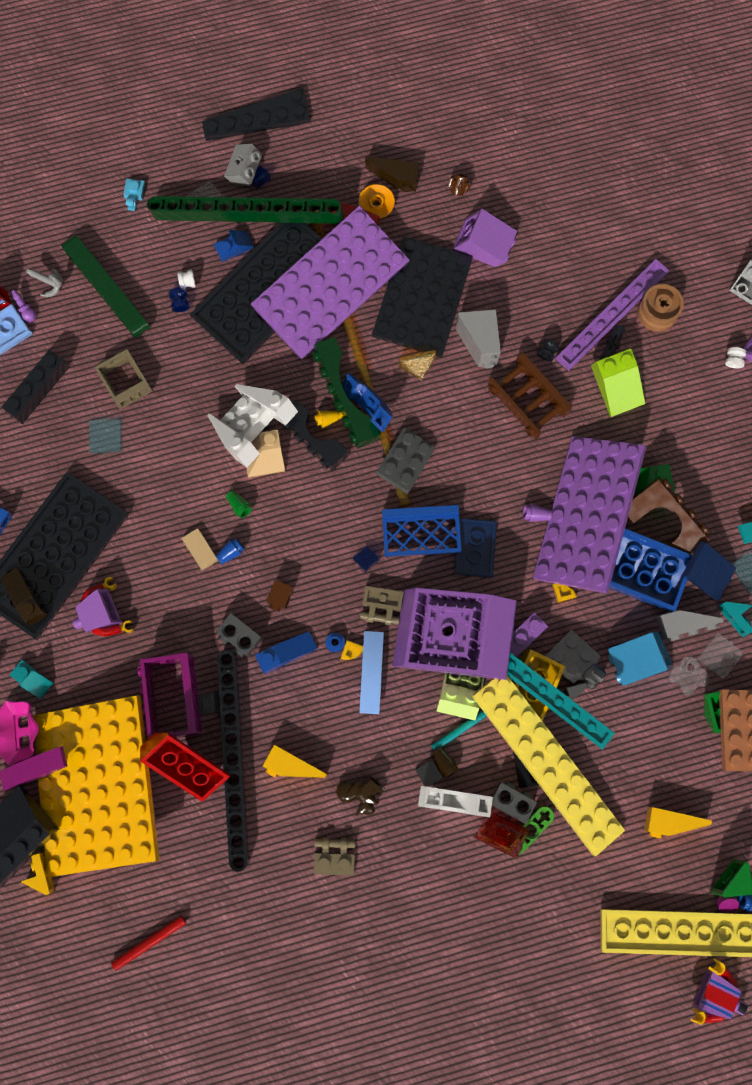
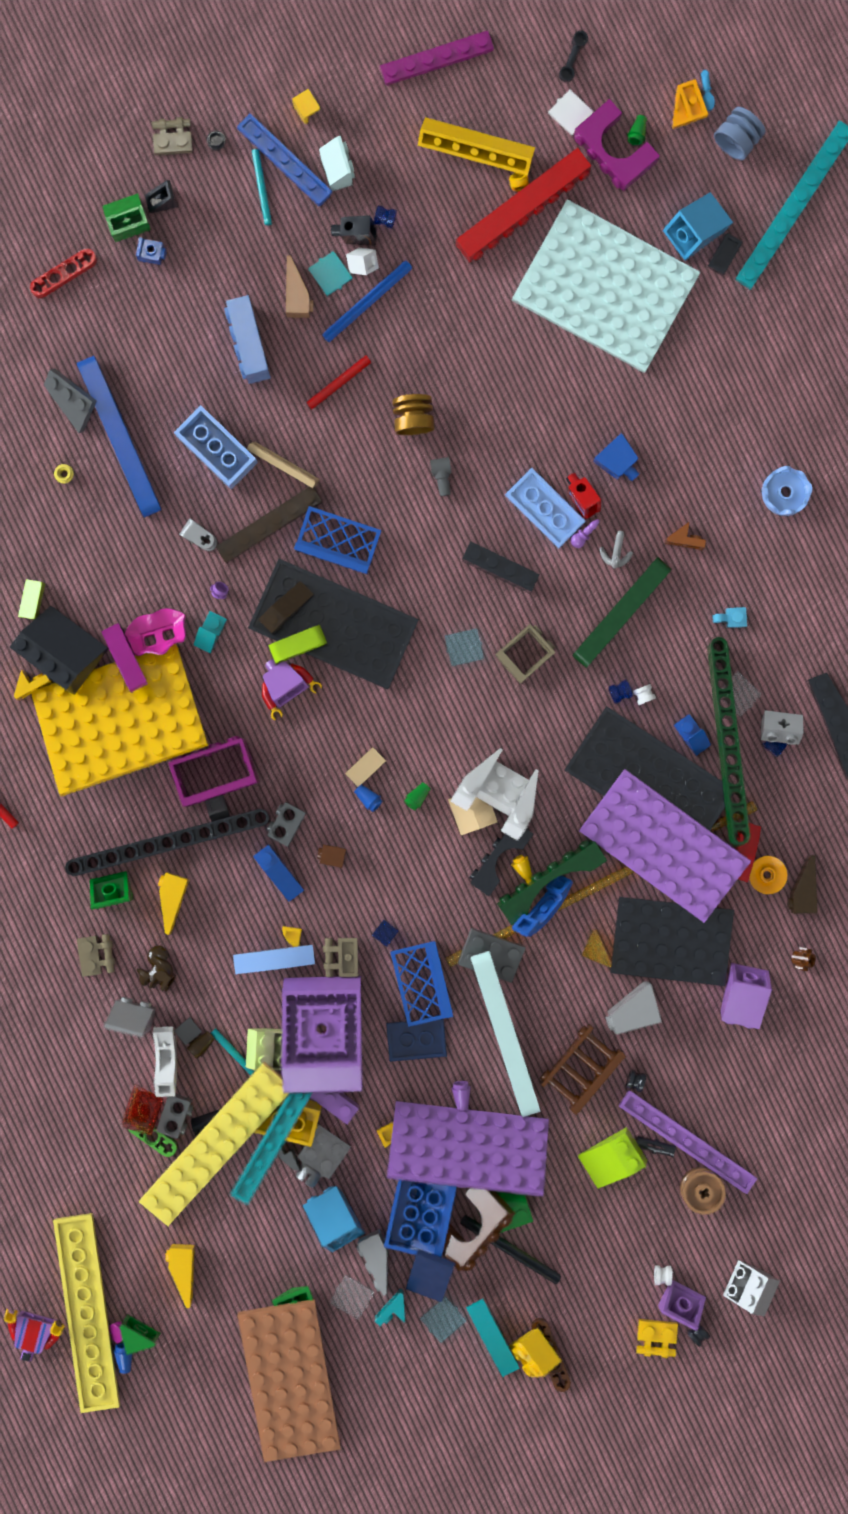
camera: 80 degrees right, 10 degrees up
(22, 117) = (792, 479): none -> light blue plate
(51, 221) = (680, 539): none -> dark orange slope
(61, 590) = (297, 644): none -> lime beam
(182, 765) = (150, 799): red slope -> none
(270, 829) = (110, 890): none -> green slope
(337, 648) = (301, 913): blue plate -> none
(403, 828) = (130, 1017): none -> light grey slope
(483, 459) = (505, 1034): none -> light aqua beam
(687, 678) = (323, 1268): clear plate -> none
(694, 492) = (514, 1252): none -> black axle

